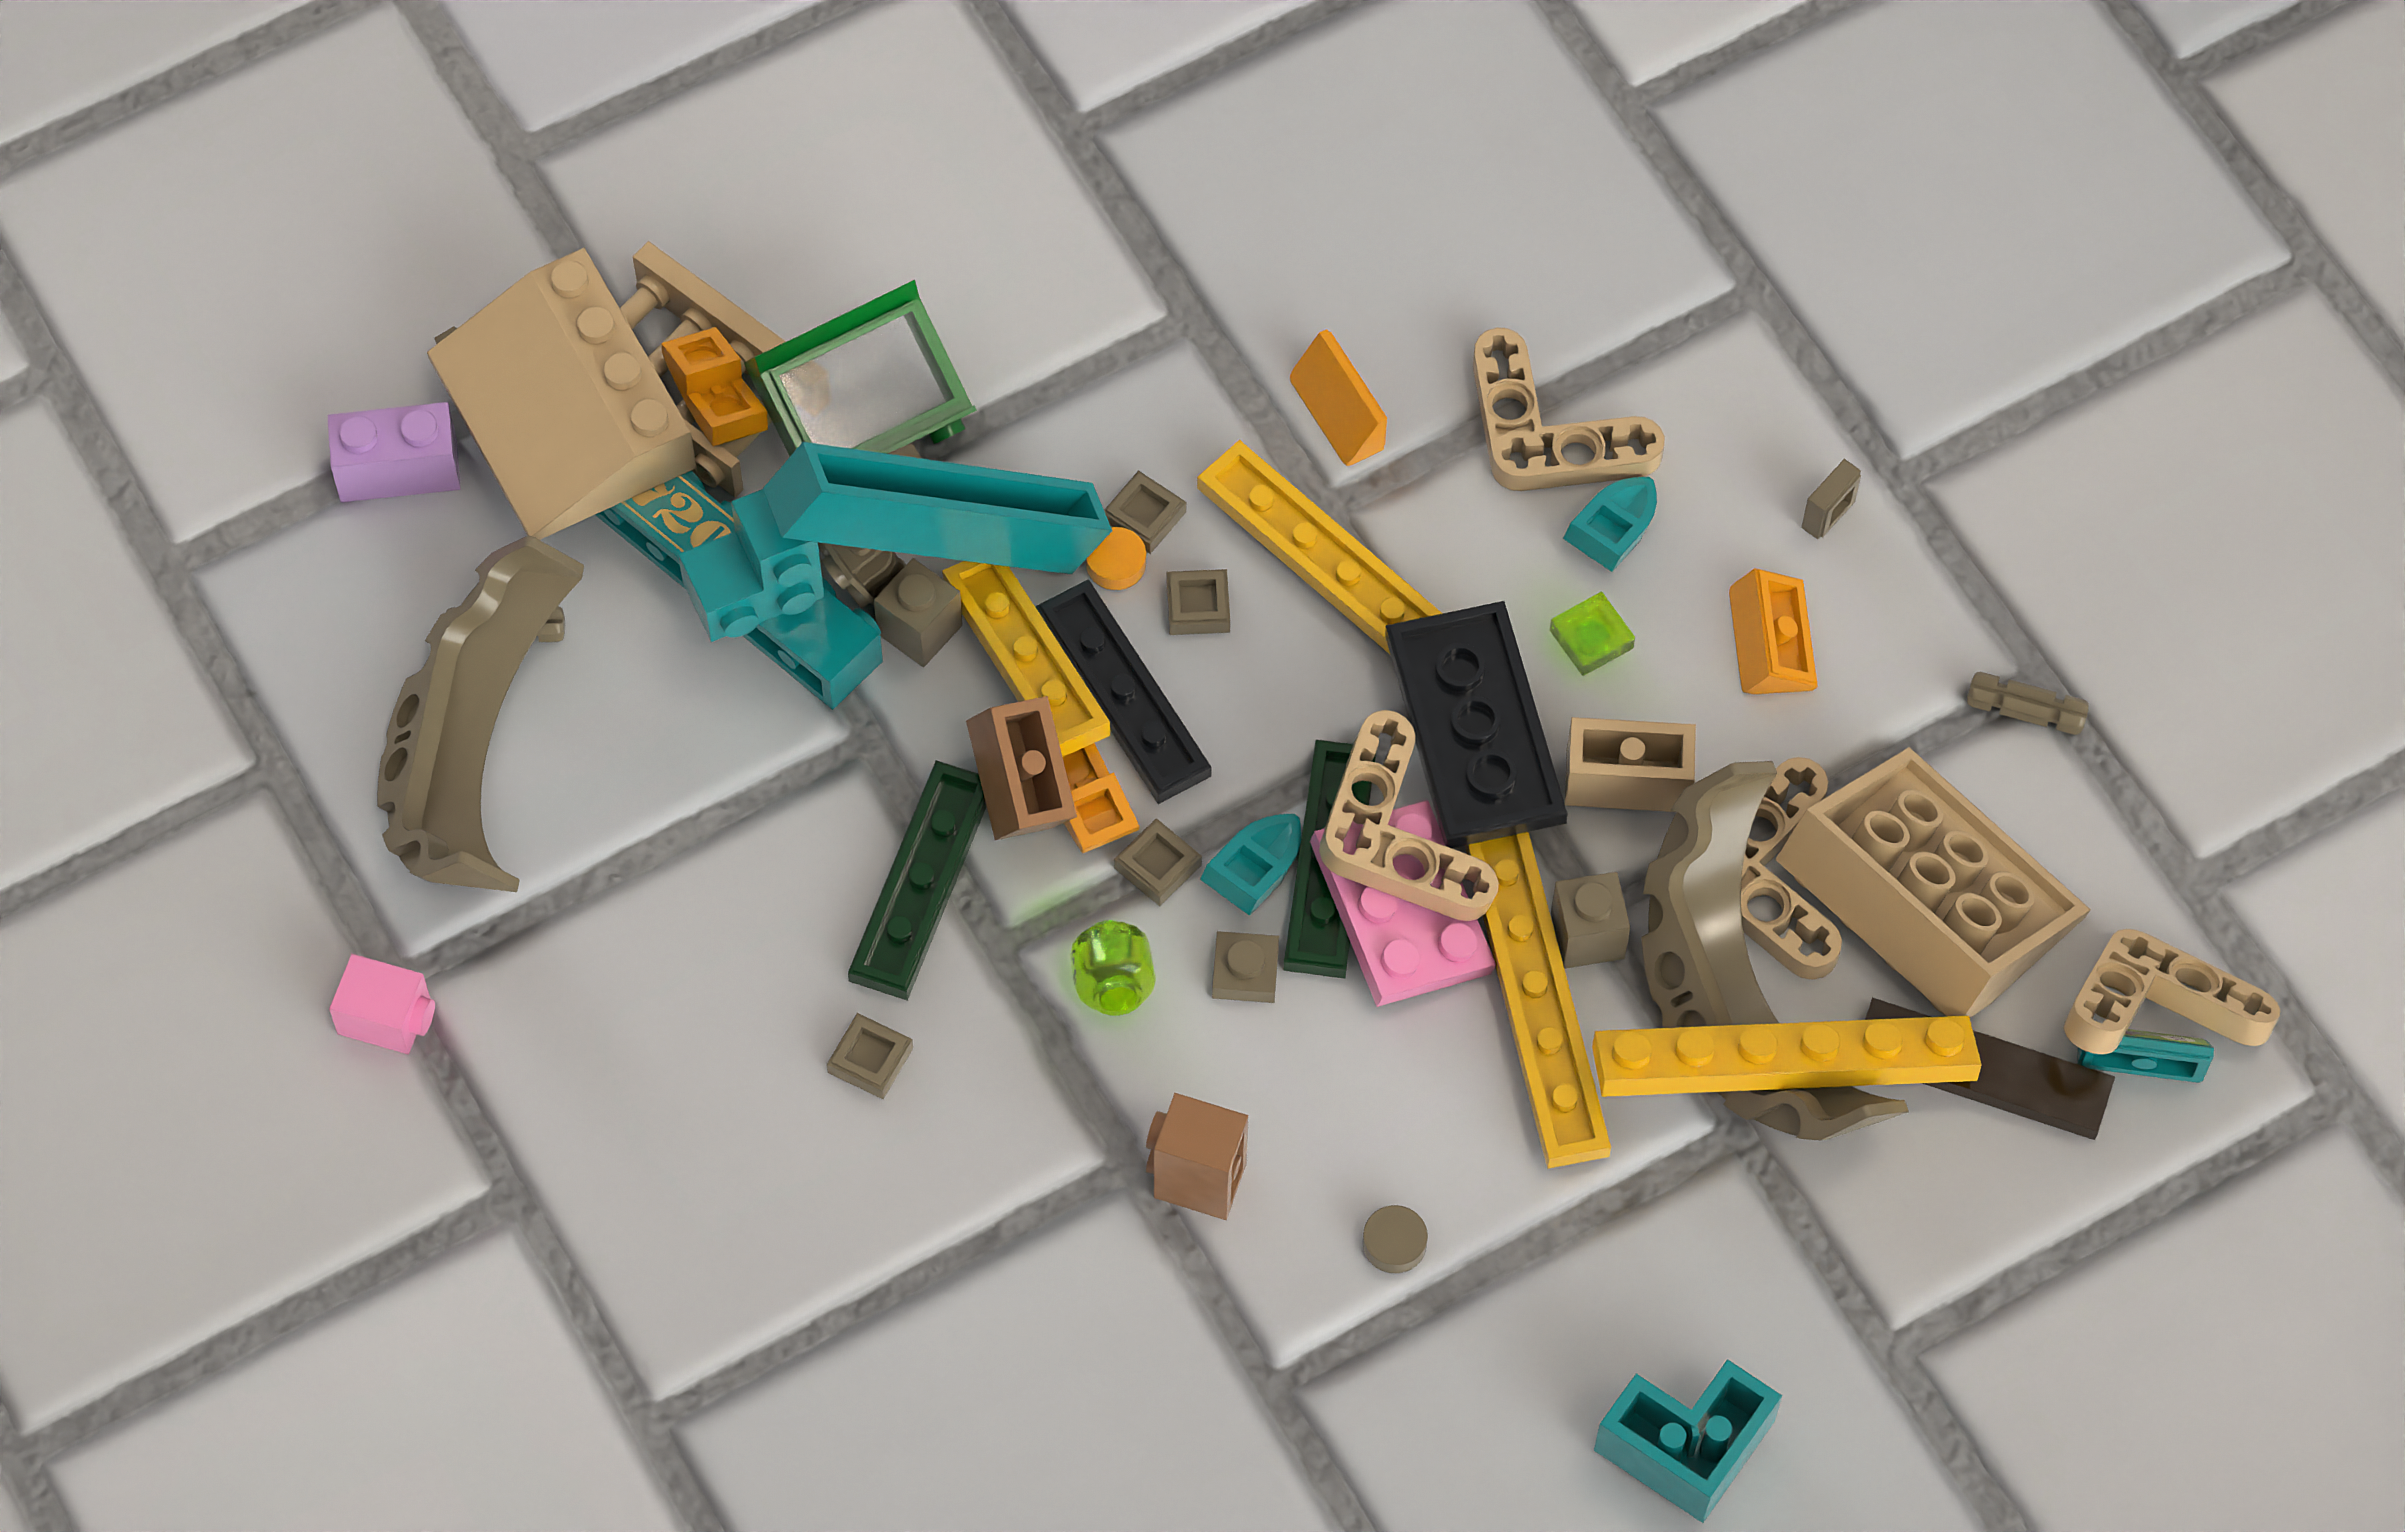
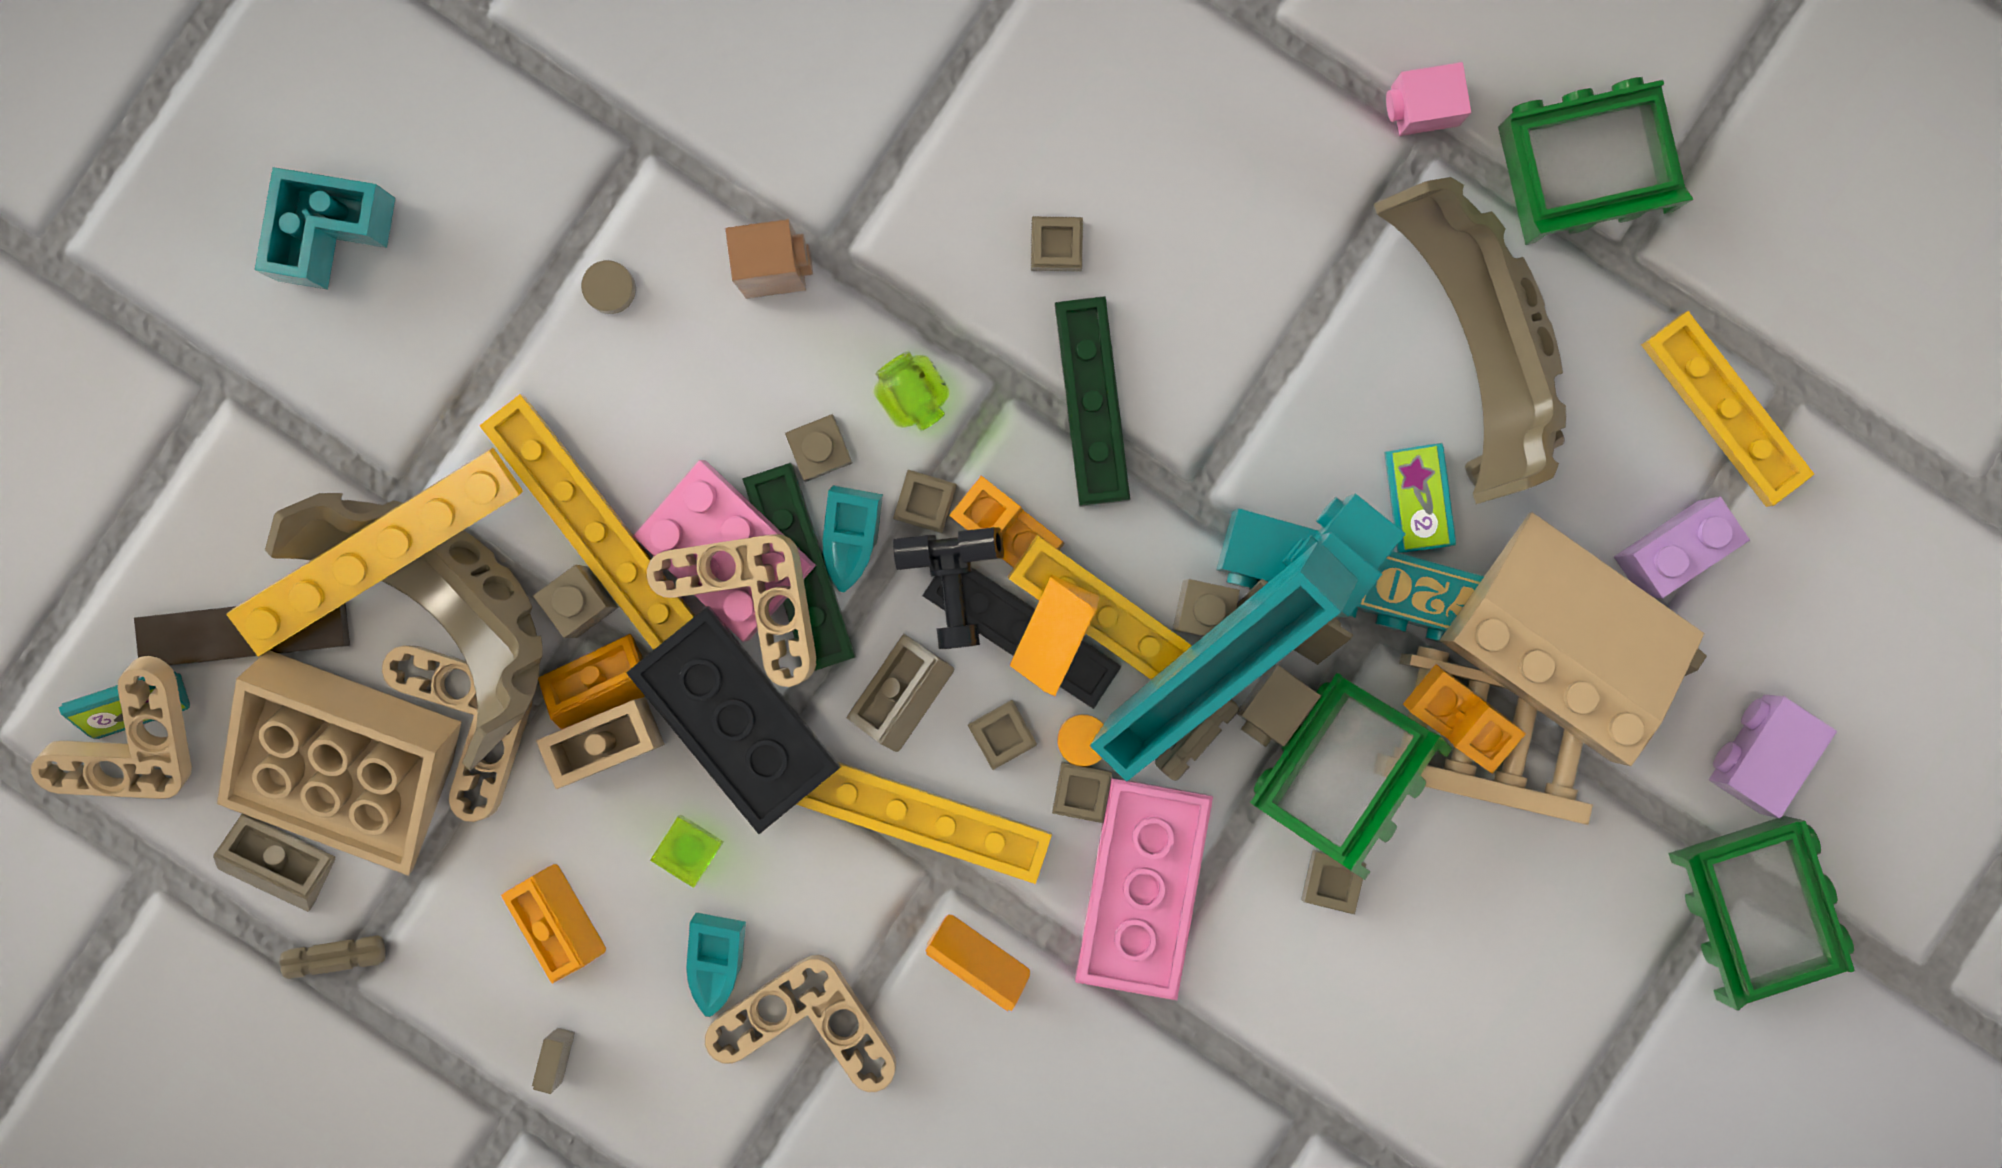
camera: 155 degrees right, 25 degrees up
(248, 860) = (1592, 159): none -> window
(260, 565) = (1727, 409): none -> yellow plate
(422, 231) = (1771, 754): none -> lavender brick
(517, 104) = (1765, 910): none -> window
(628, 625) = (1420, 497): none -> slope
(944, 307) = (1331, 884): none -> dark tan plate
(1021, 768) = (1055, 507): medium nougat brick -> none
(1089, 645) = (1054, 634): none -> light orange slope
(1130, 394) = (1143, 889): none -> bright pink tile
(1164, 768) = (949, 560): none -> black bar
(1287, 690) = (900, 693): none -> dark tan slope
(1606, 844) = (592, 683): none -> light orange slope
(2050, 824) = (274, 862): none -> dark tan slope

